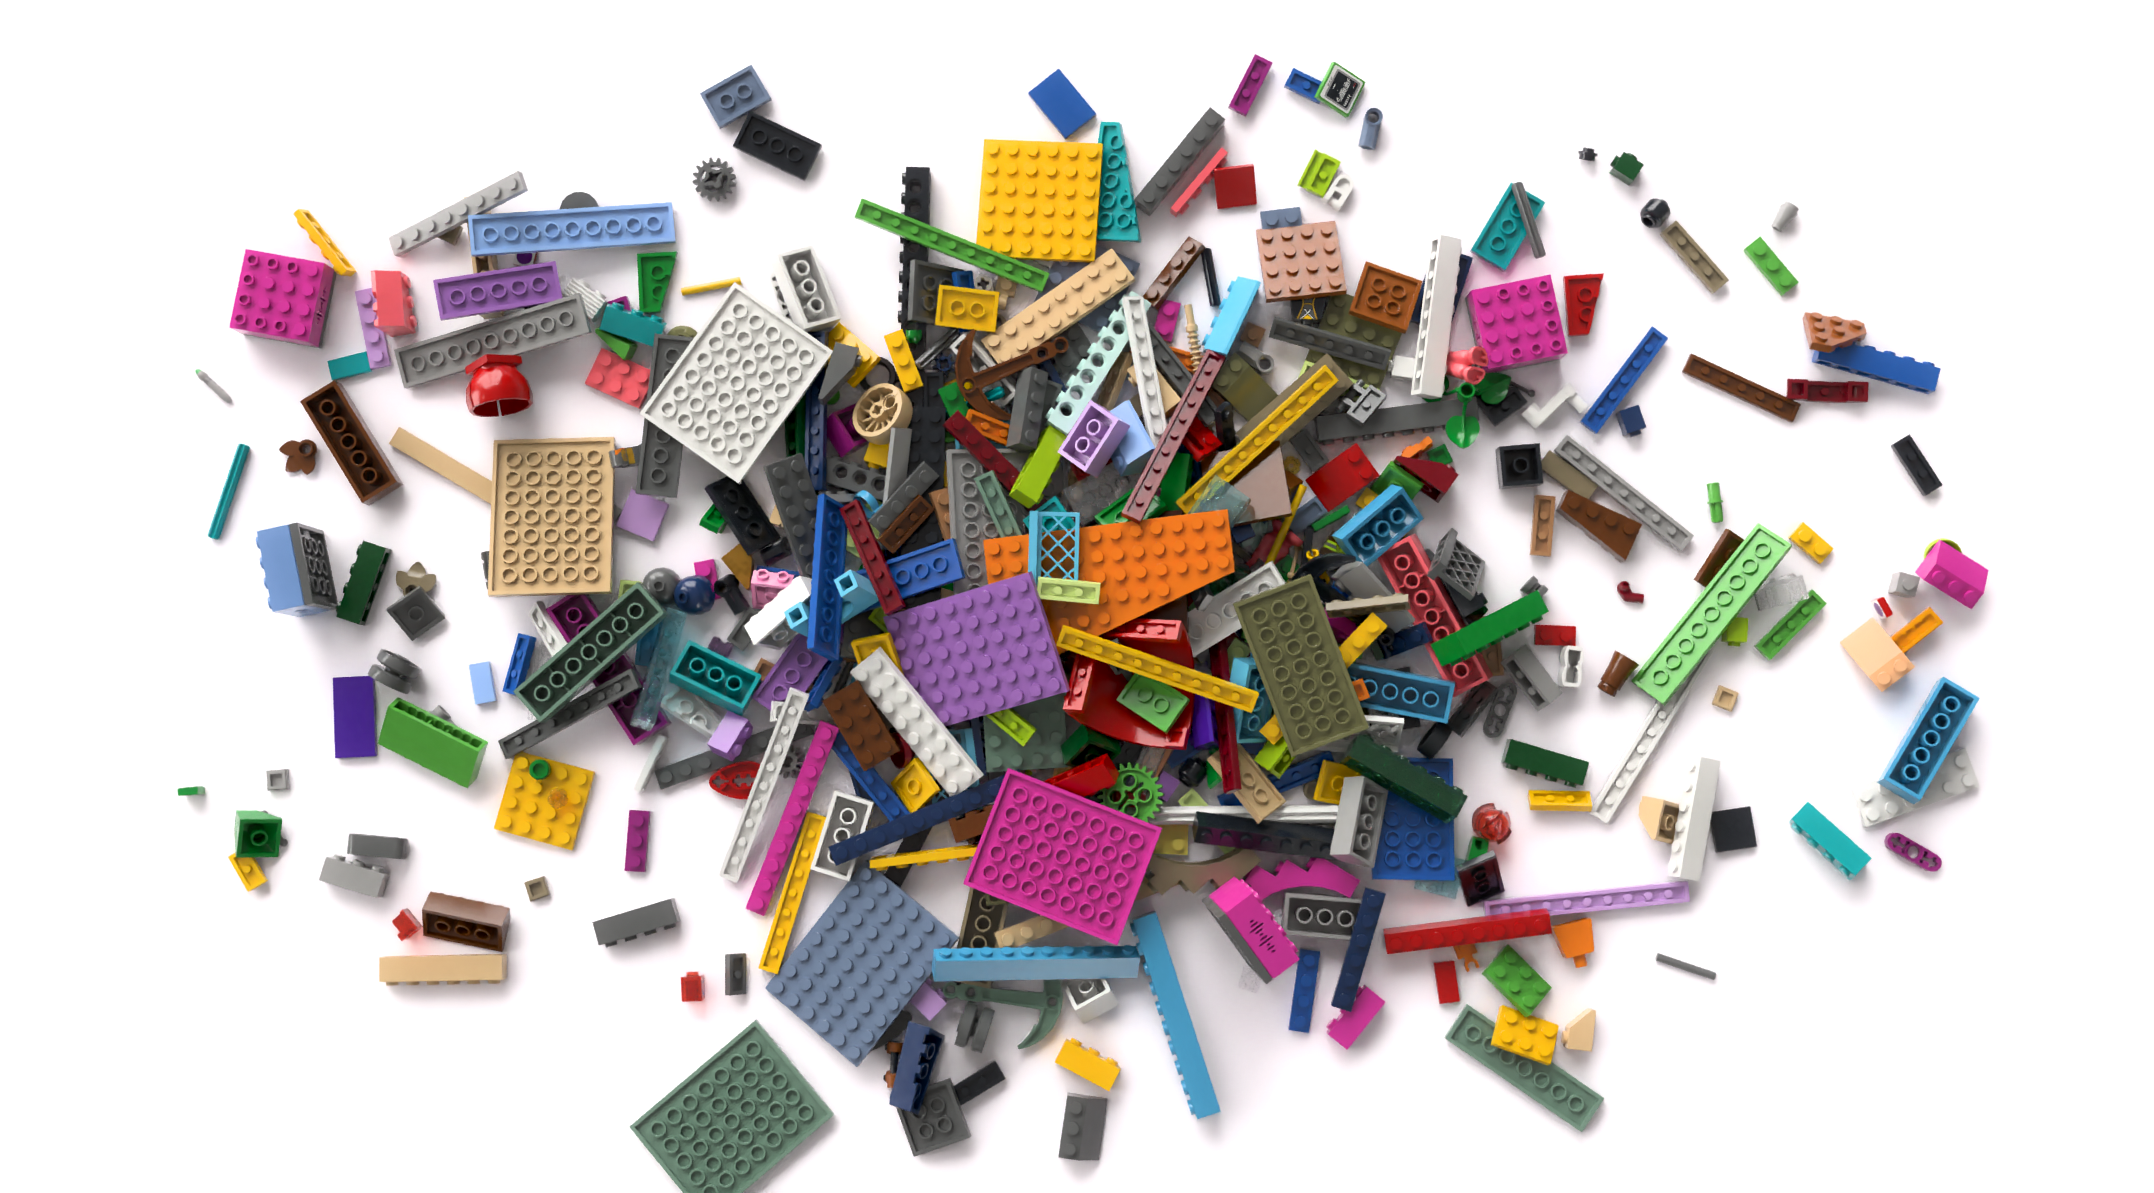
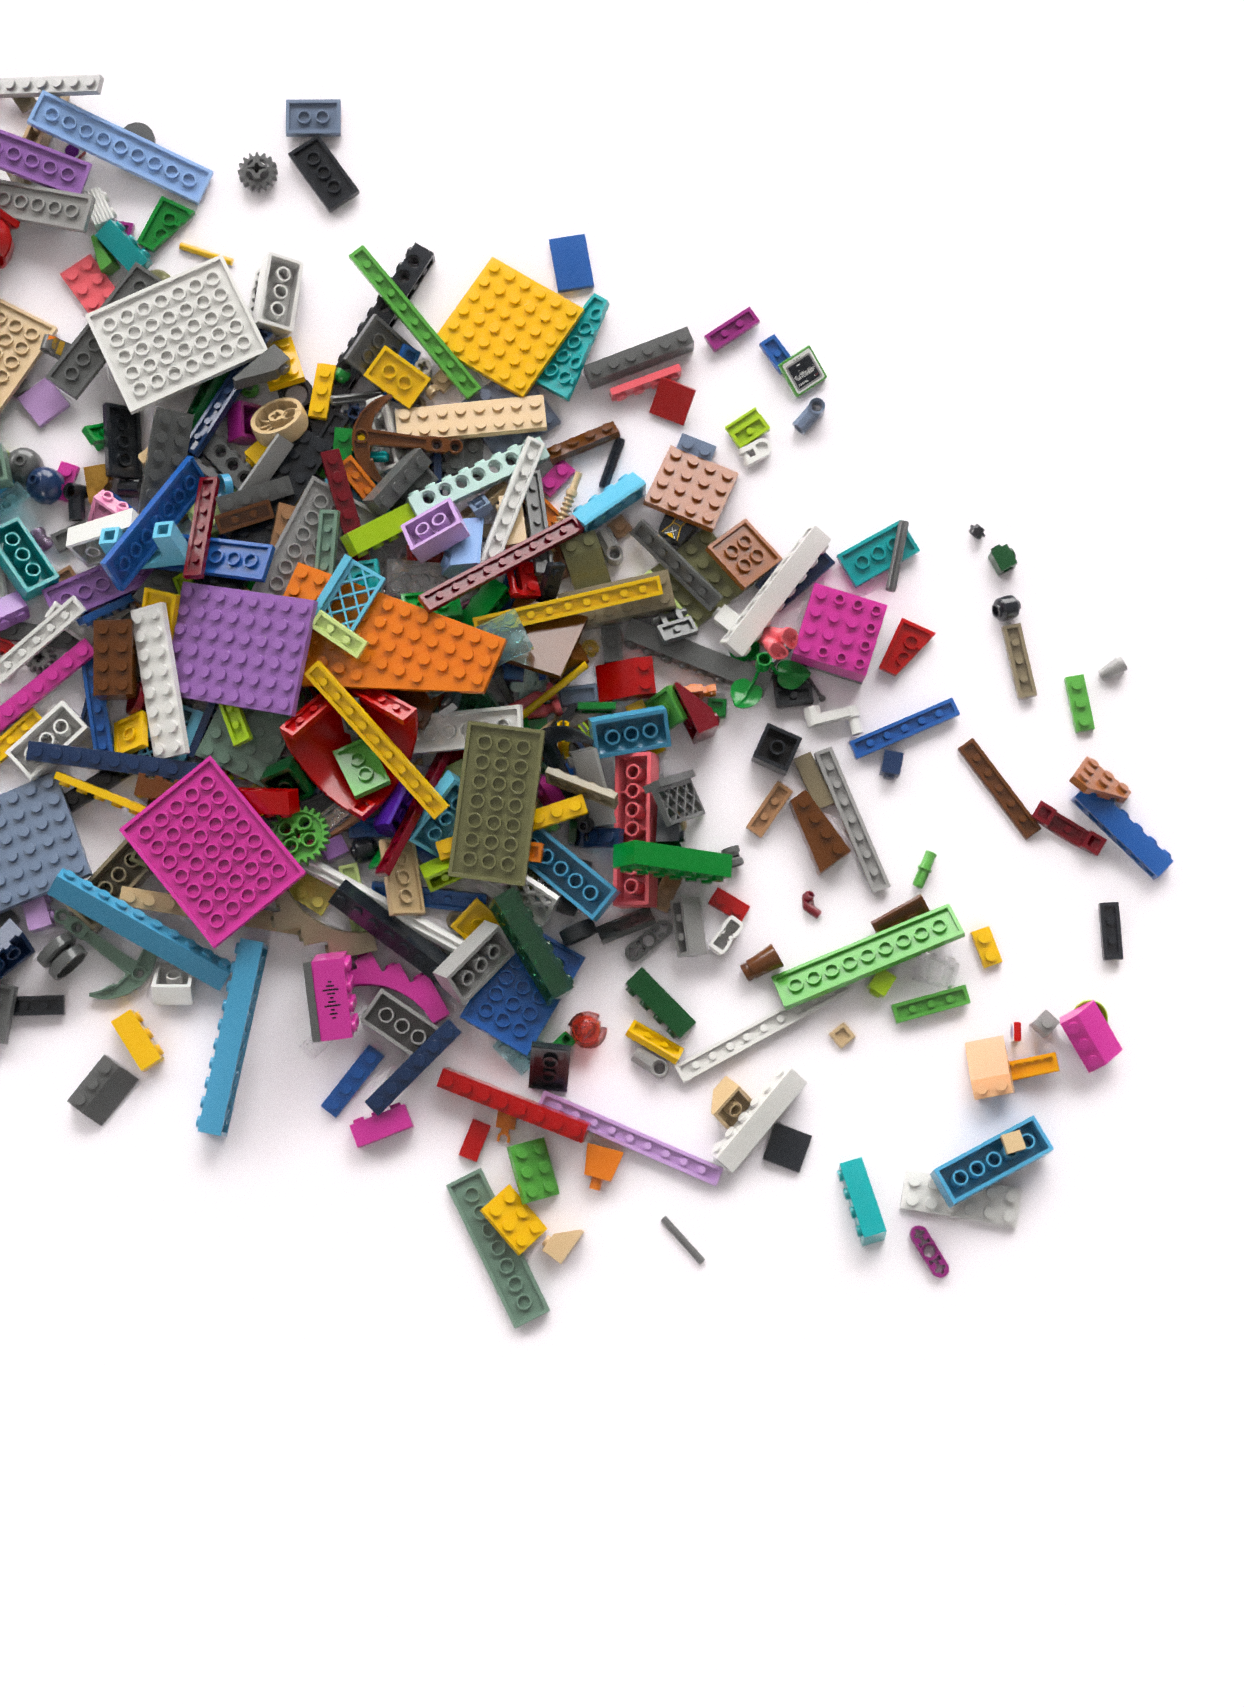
camera: 20 degrees right, 5 degrees down
(1118, 389) = (480, 506): none -> sand blue plate
(1565, 821) = (648, 1062): none -> light grey piece
(1940, 713) = (1013, 1142): none -> tan tile

